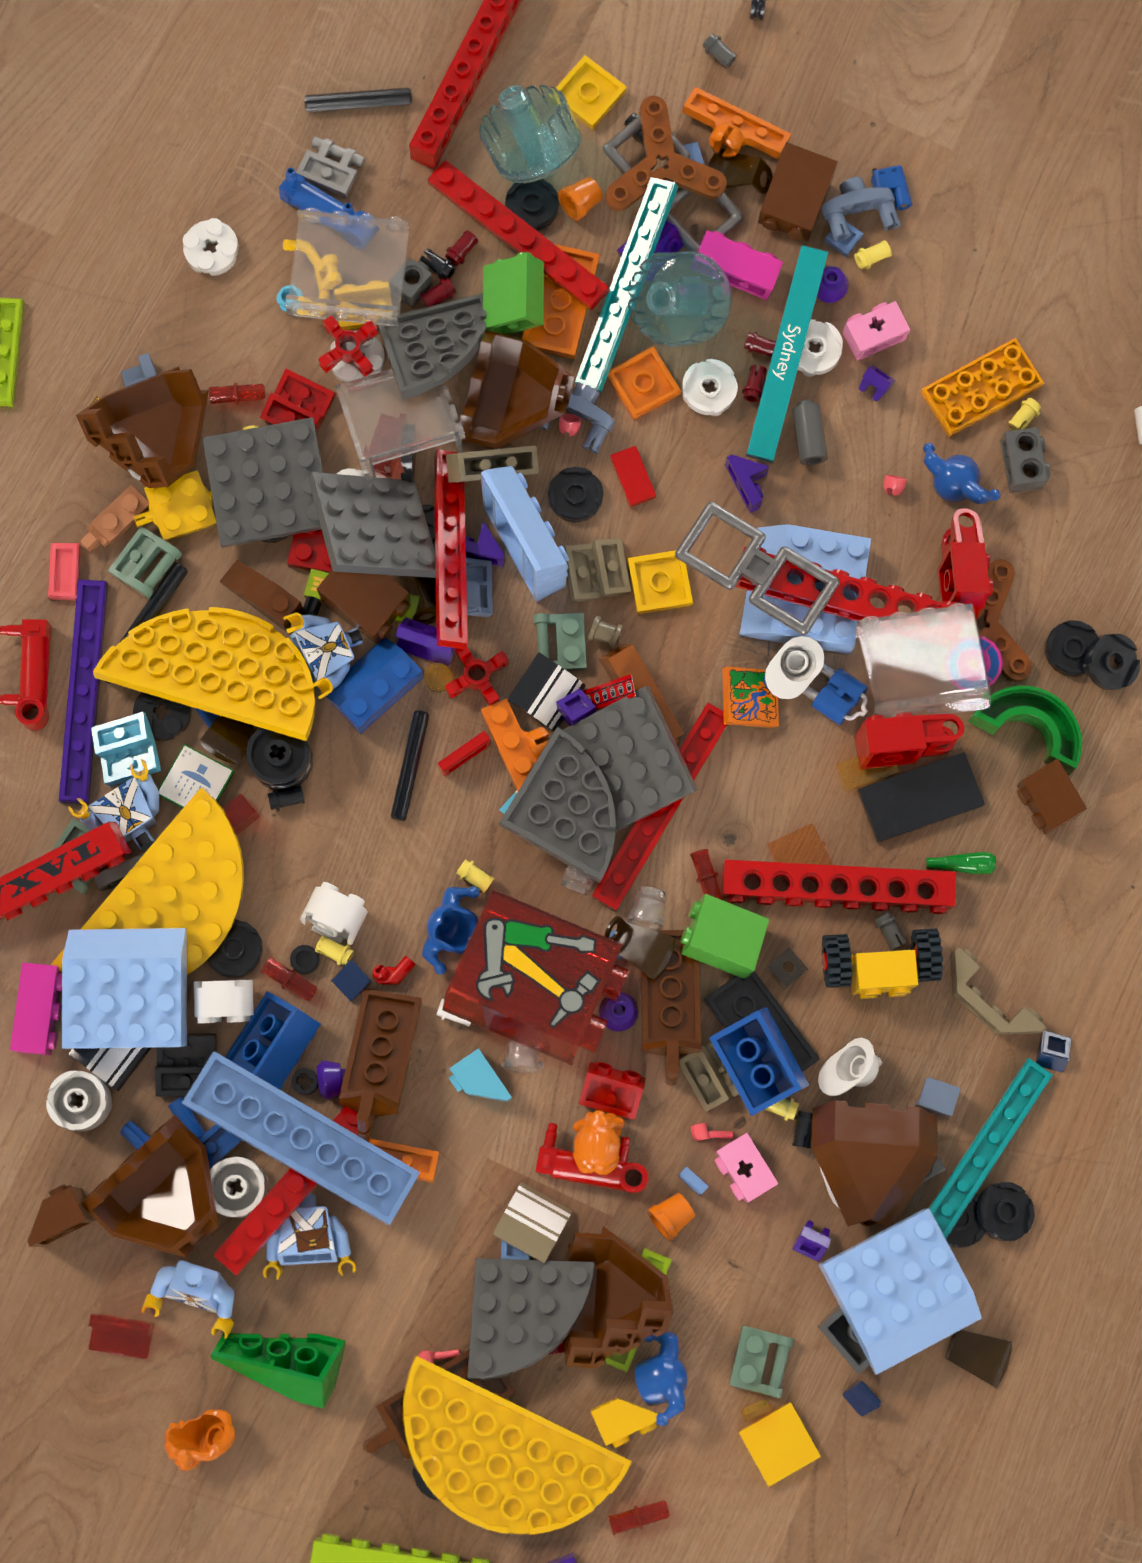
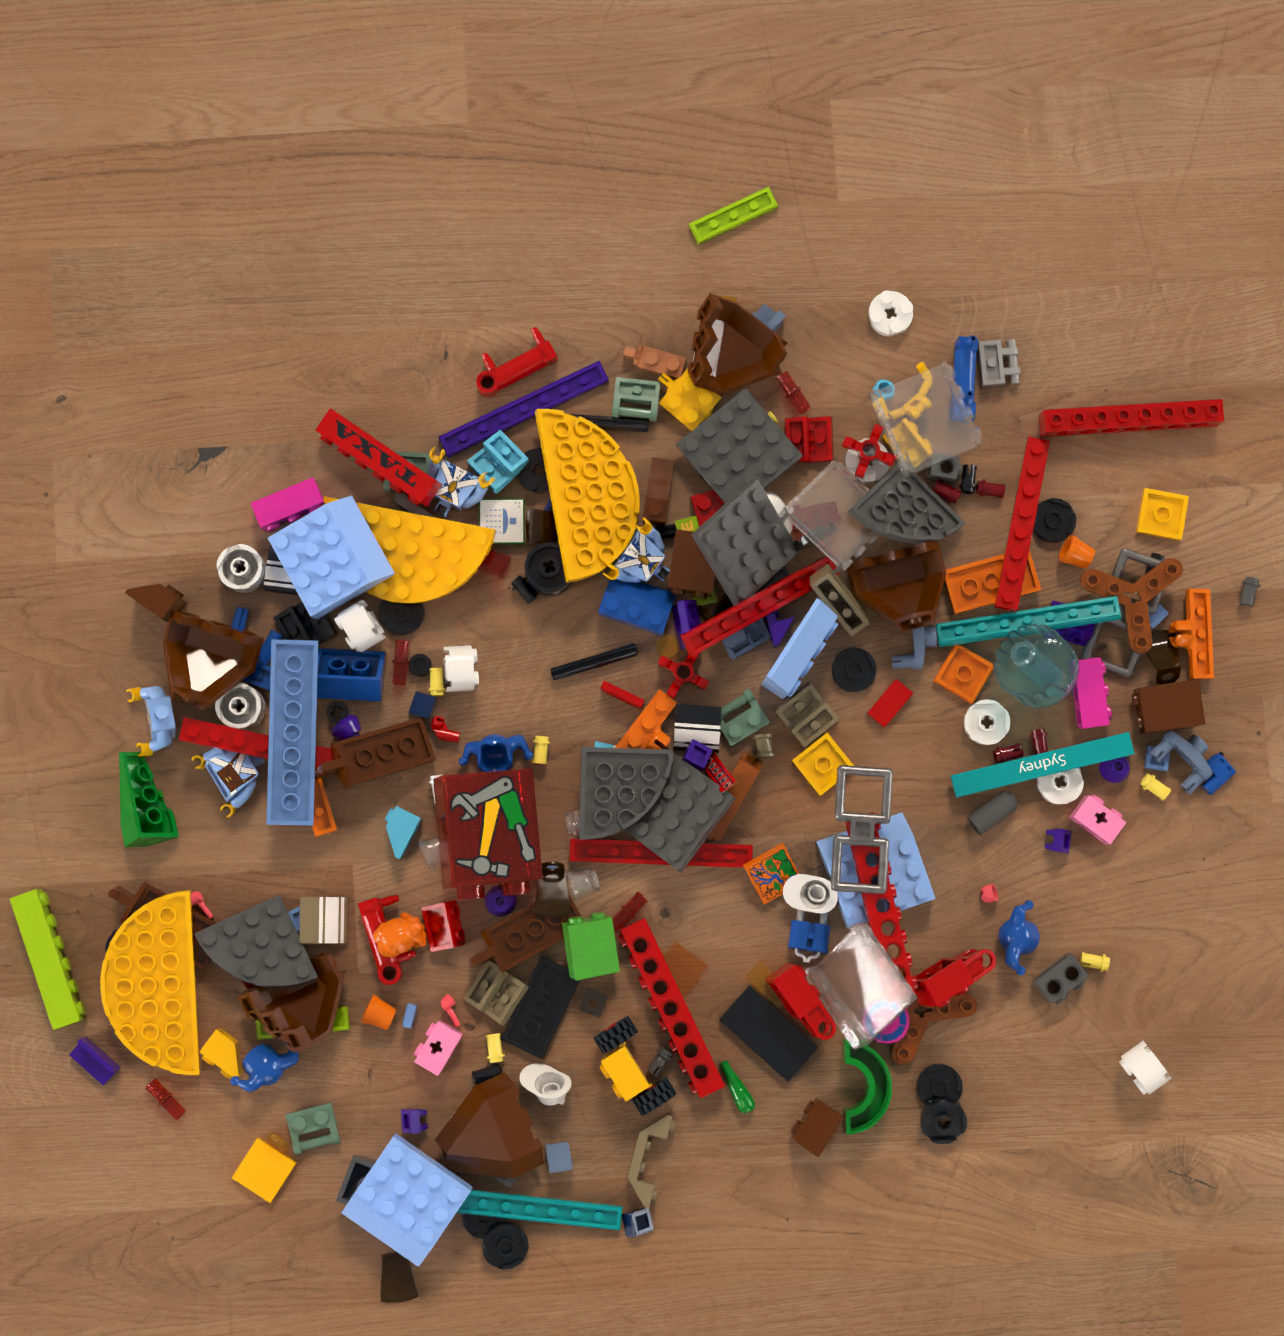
camera: 60 degrees right, 5 degrees up
(64, 571) = (600, 347): coral tile -> none
(120, 1335) = (104, 684): clear red panel -> none
(199, 1438) = (62, 775): orange hair -> none
(358, 99) = (1060, 353): black axle -> none
(514, 294) = (974, 545): bright green brick -> none
(531, 134) = (1100, 492): clear light blue piece -> none
(569, 423) = (902, 638): coral hinge -> none
(743, 474) = (936, 781): dark purple slope -> none
(759, 1061) = (515, 1018): blue slope -> none
(861, 1398) = (324, 1211): dark blue slope -> none
(982, 387) = (1099, 919): light orange tile -> none

